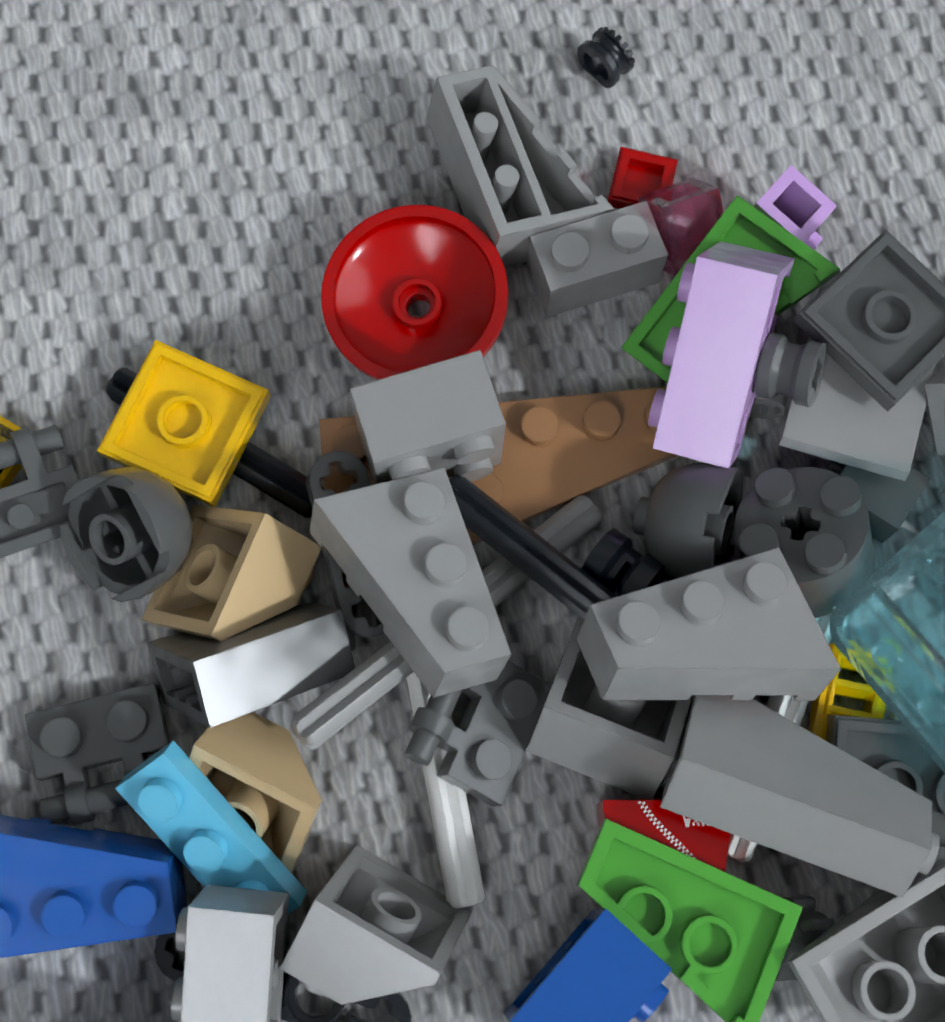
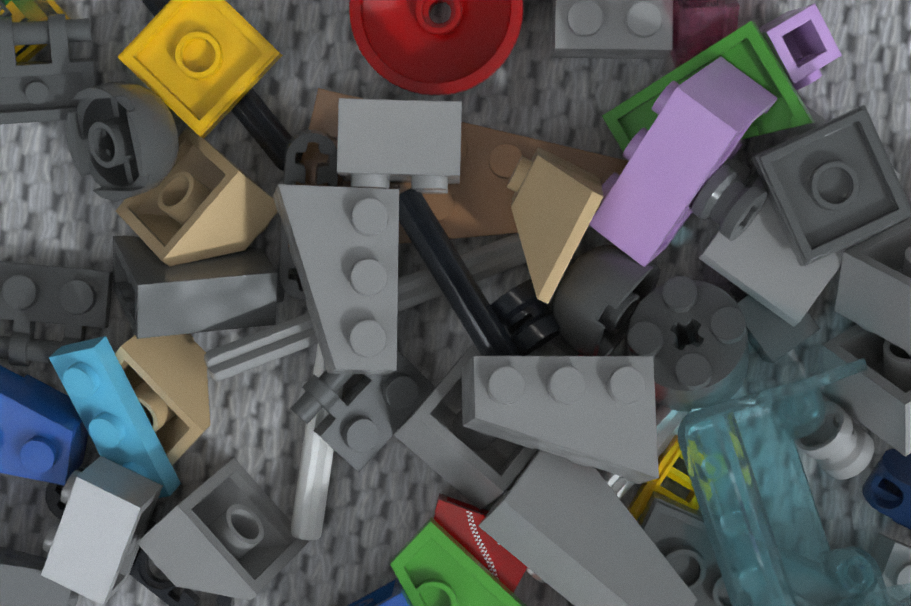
camera: 25 degrees right, 15 degrees up
(611, 451) = (551, 214): none -> tan slope

